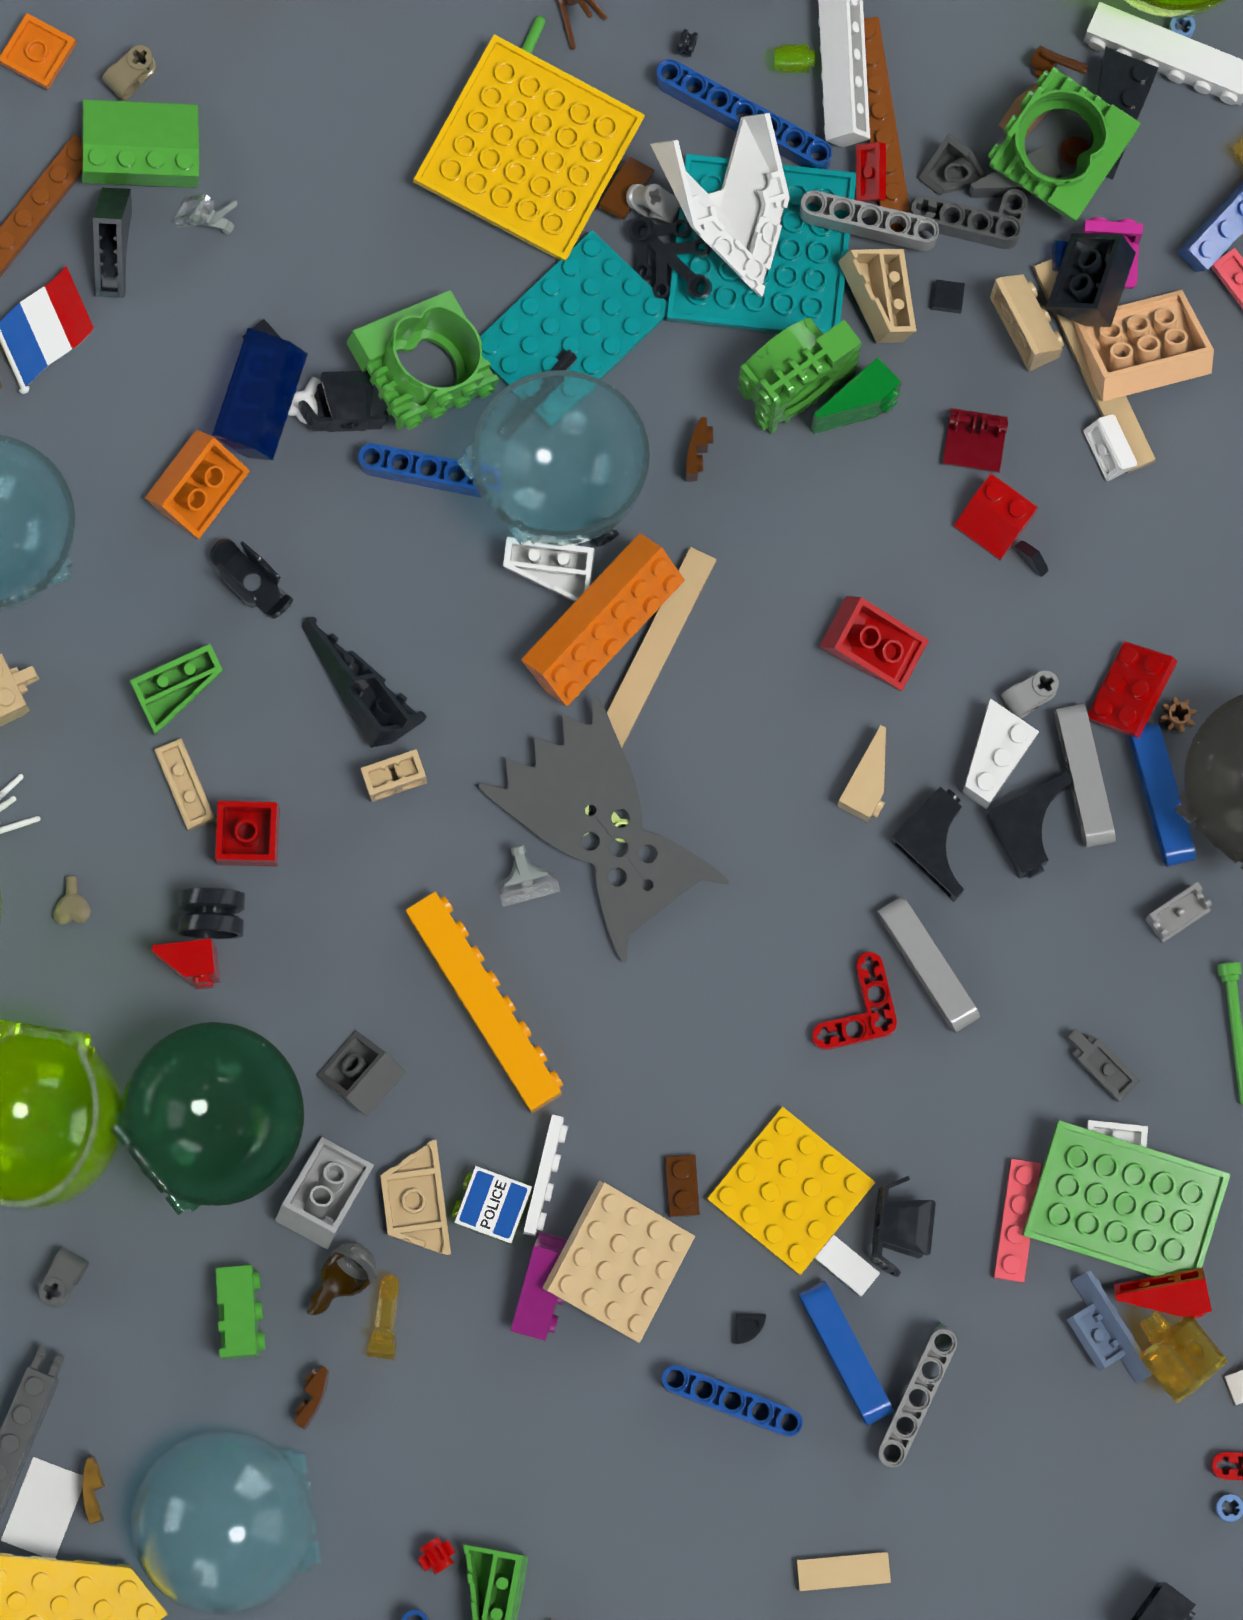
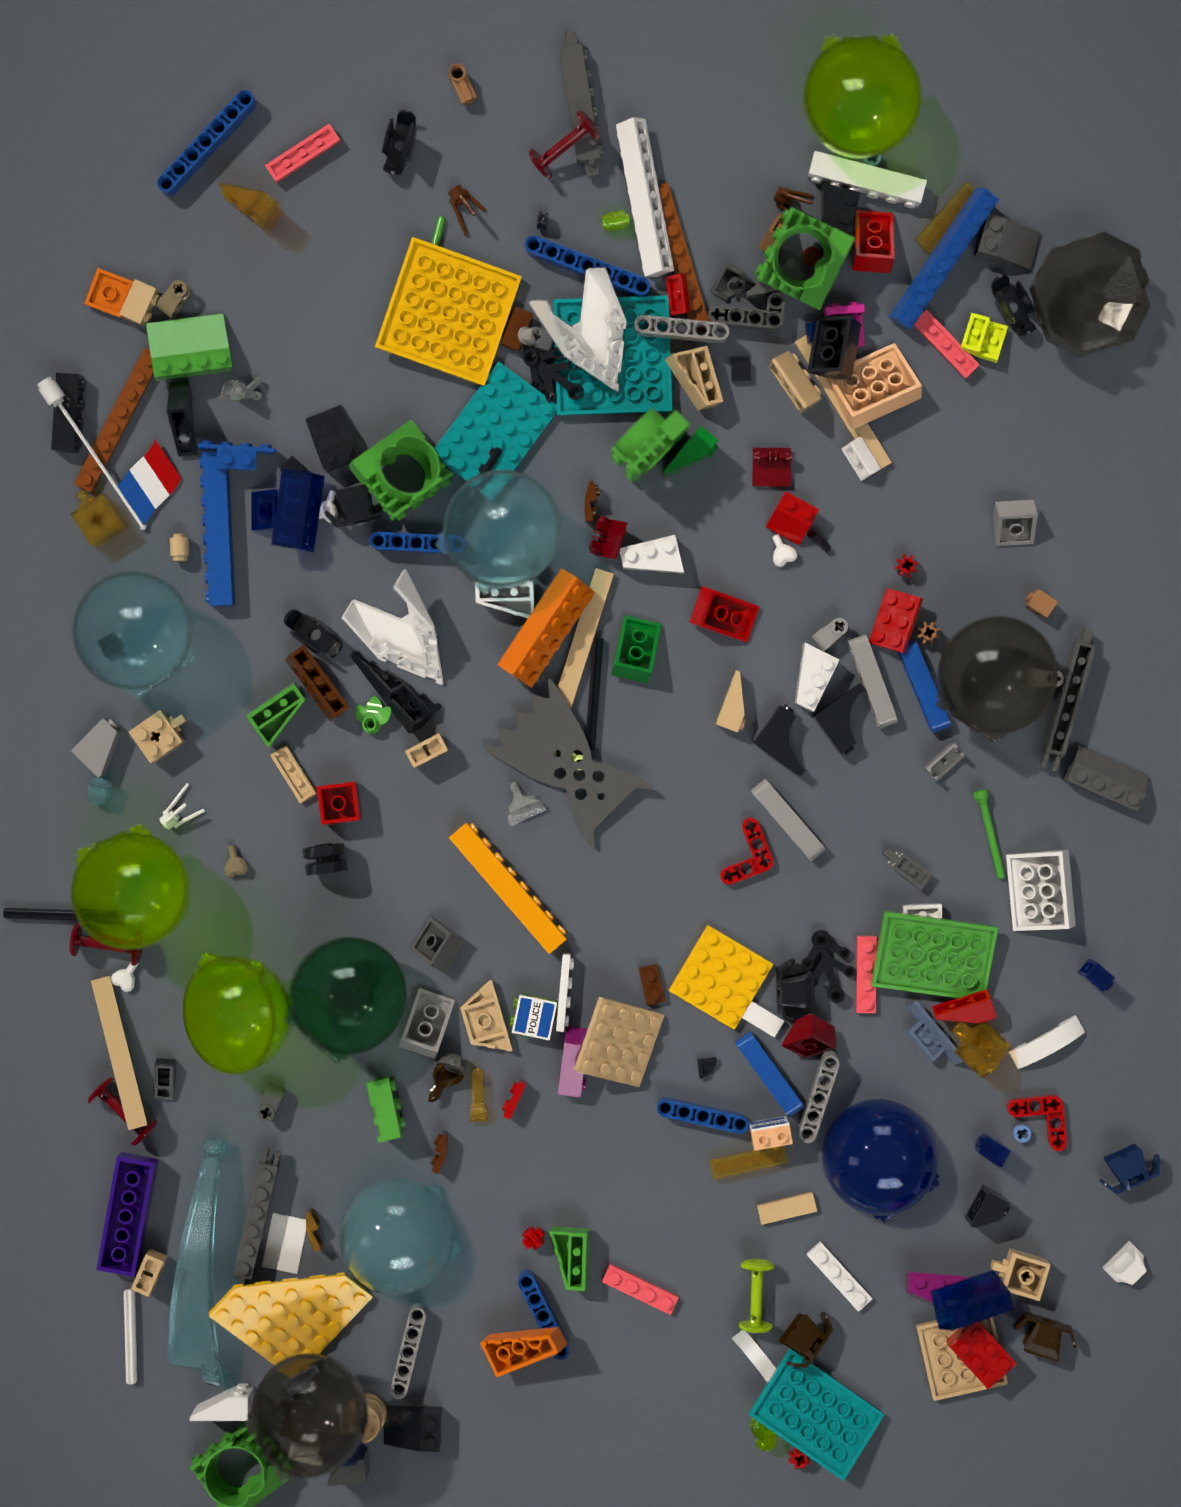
camera: 10 degrees left, 10 degrees up
(73, 425) = (179, 548): none -> tan brick
(79, 71) = (140, 303): none -> tan brick
(135, 407) = (218, 532): none -> blue brick
(181, 304) = (236, 457): none -> blue bracket
(191, 960) = (318, 892): red slope -> none
(197, 484) = (267, 575): orange slope -> none
(208, 389) = (263, 509): none -> clear blue slope
(244, 651) = (317, 683): none -> reddish brown brick
(320, 710) = (374, 712): none -> bright green plate
(328, 303) = (333, 438): none -> black slope
(387, 614) = (404, 640): none -> white windscreen
(433, 1340) = (516, 1090): none -> red plate
(660, 729) = (594, 690): none -> black axle
(719, 503) = (609, 539): none -> dark red hinge
(733, 675) = (636, 649): none -> green slope
(778, 540) = (653, 555): none -> white wedge
(793, 1486) = (747, 1161): none -> clear yellow plate
(834, 1442) = (770, 1133): none -> light nougat piece
(916, 1300) = (810, 1036): none -> dark red slope
(960, 1193) = (827, 962): none -> black plant
(975, 566) = (783, 552): none -> white rock
(1002, 1513) = (880, 1158): none -> clear blue windscreen
(1163, 606) = (909, 561): none -> red gear
(1168, 142) = (873, 241): none -> red slope
(1178, 1521) = (992, 1149): none -> clear blue slope

